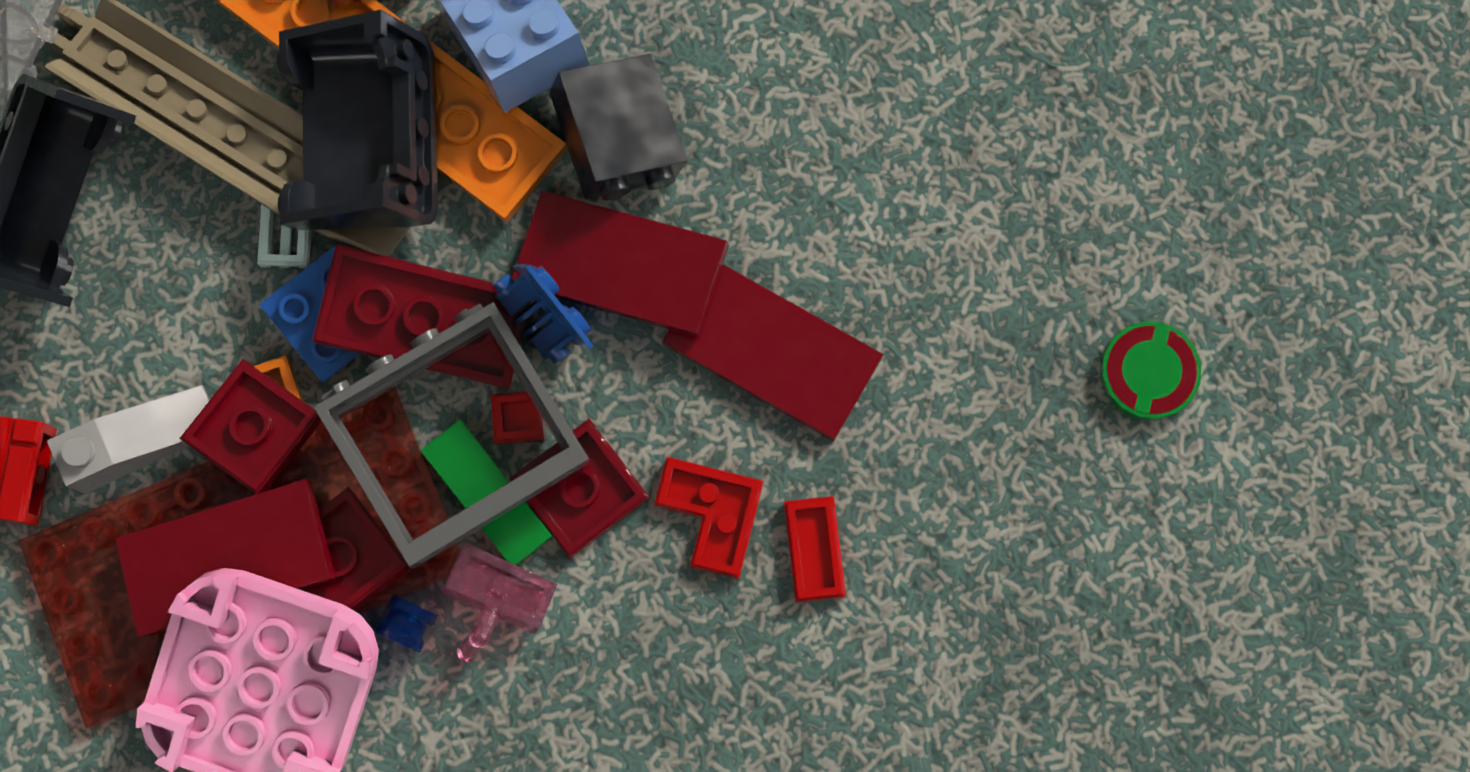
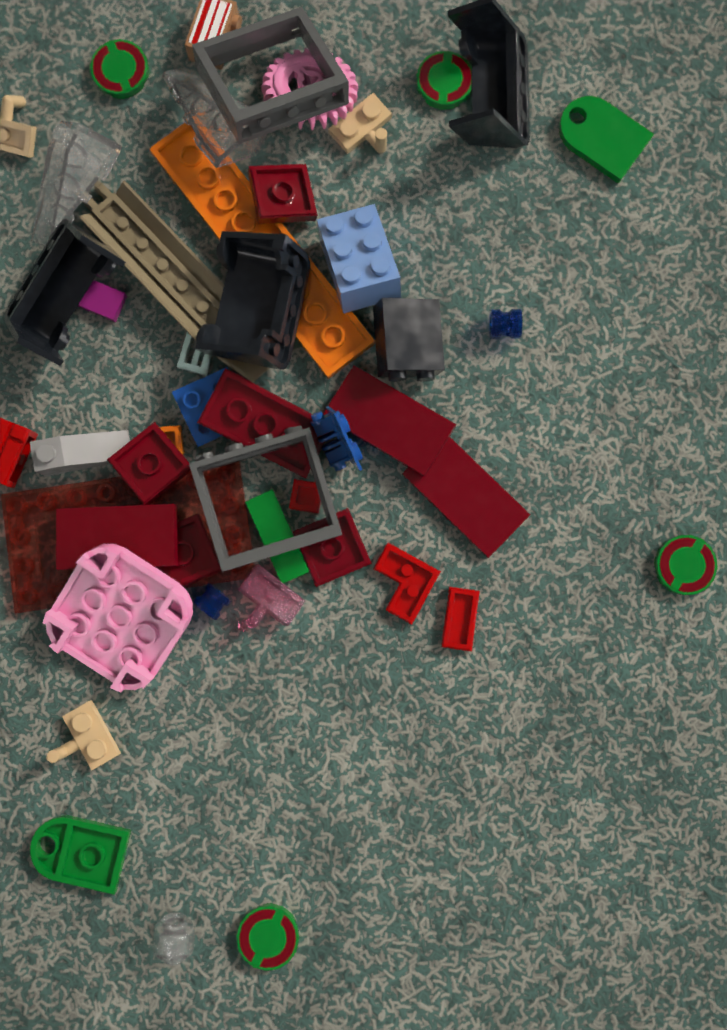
camera: 15 degrees right, 5 degrees up
(114, 190) = (103, 301): none -> magenta tile
(755, 70) = (505, 324): none -> clear blue wheel

